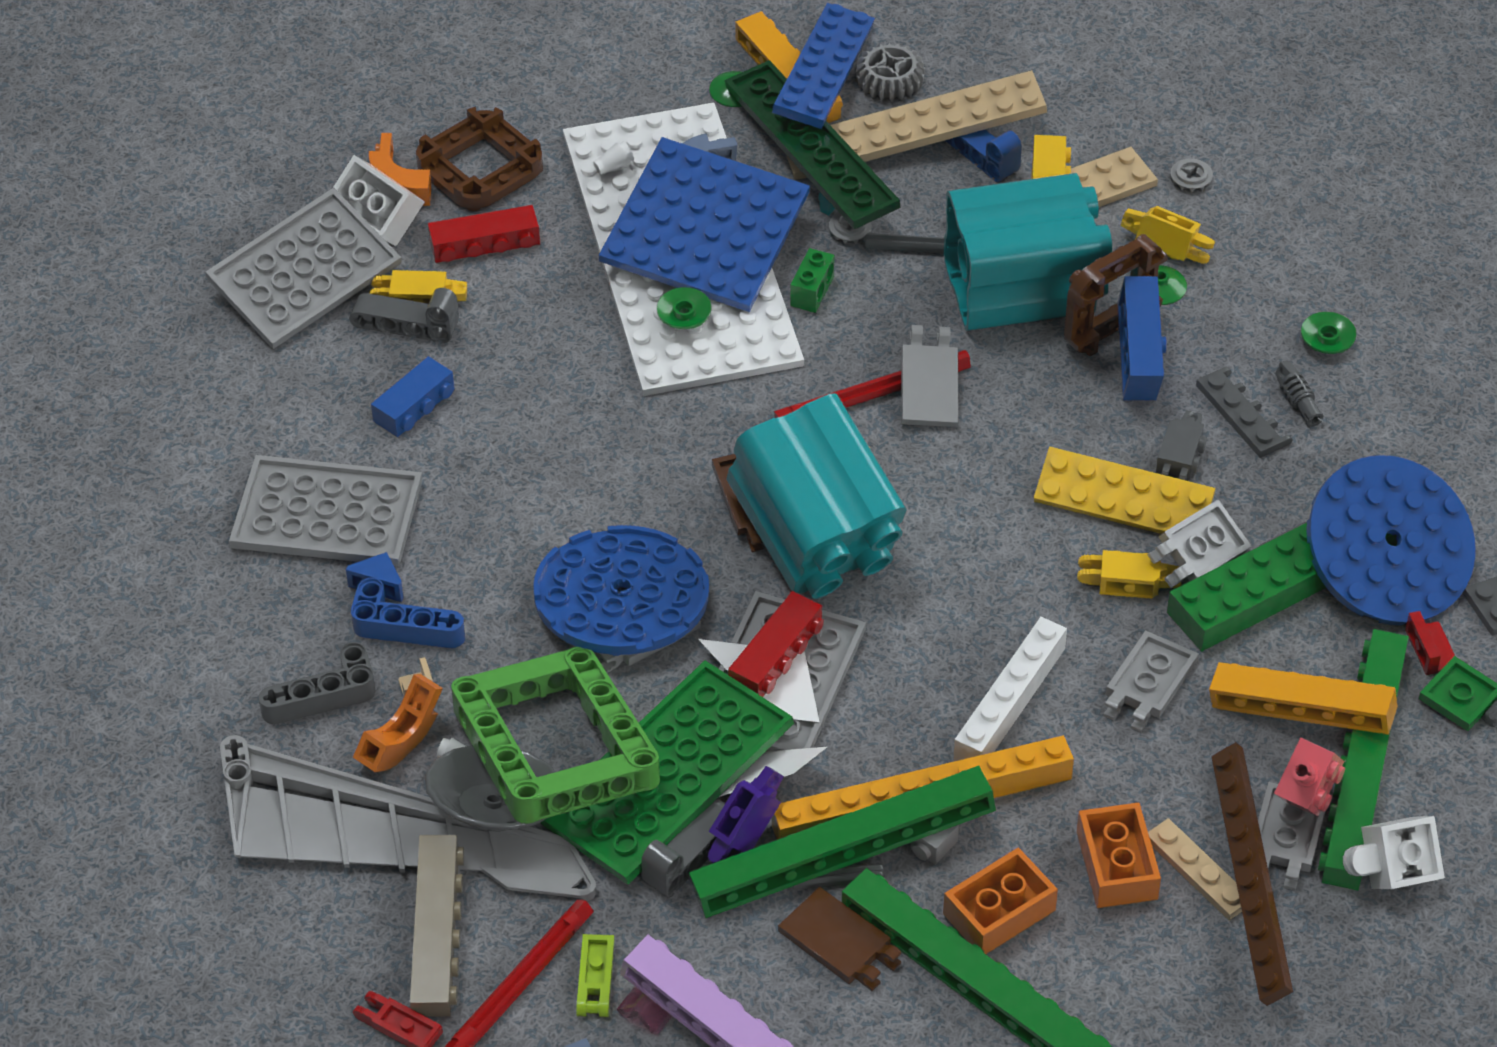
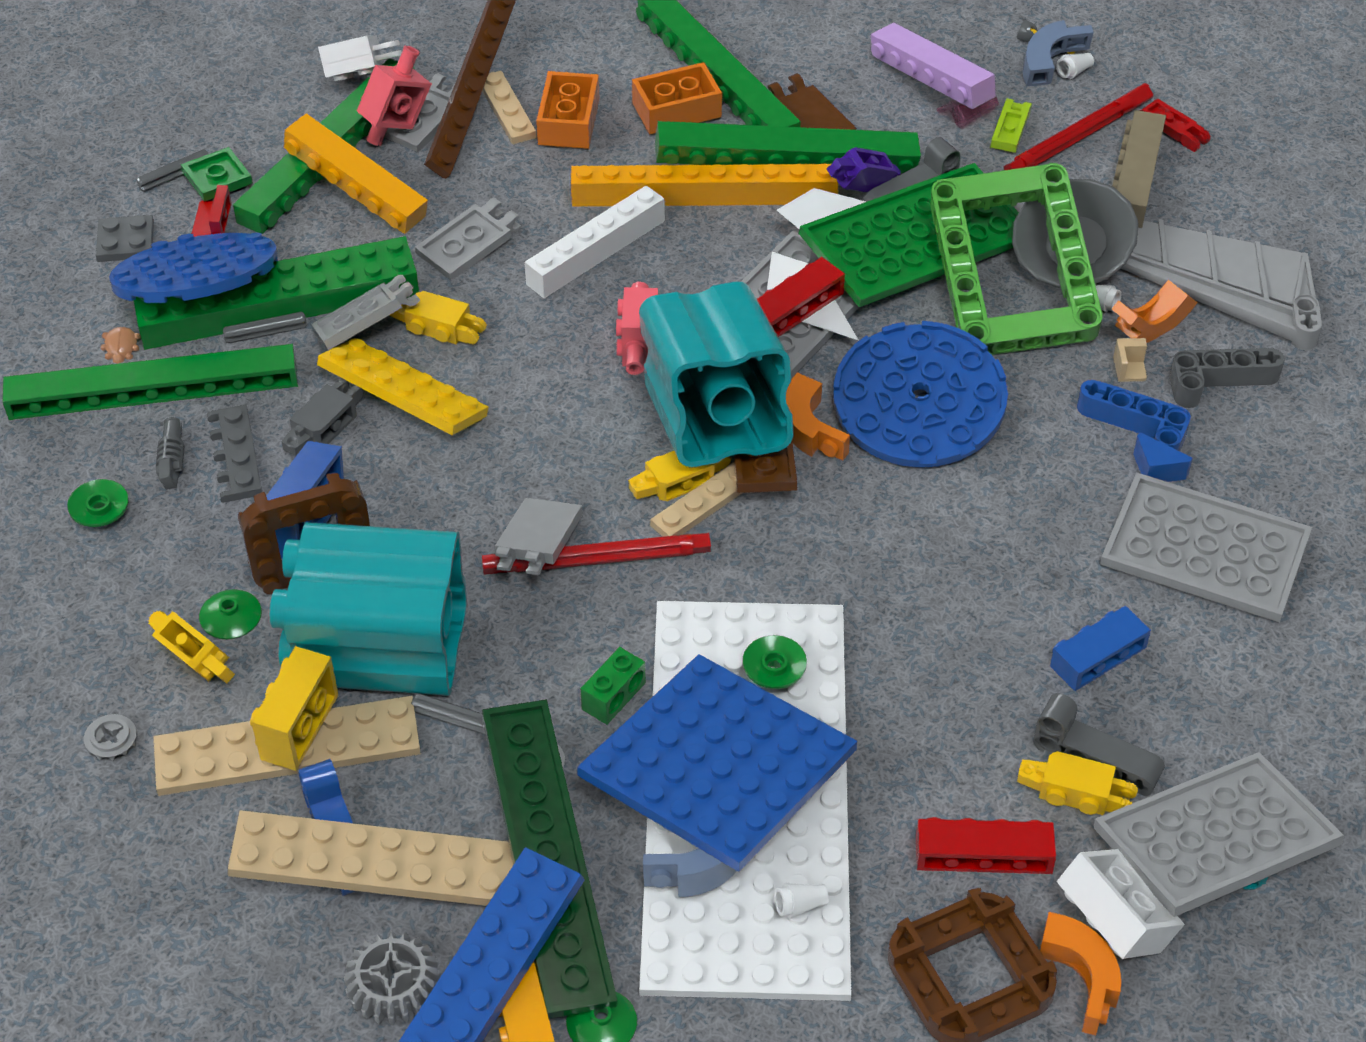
camera: 165 degrees left, 0 degrees up
(726, 538) = (808, 432): none -> orange arch
(920, 588) = (632, 345): none -> coral brick
(1394, 435) = (149, 381): none -> green brick

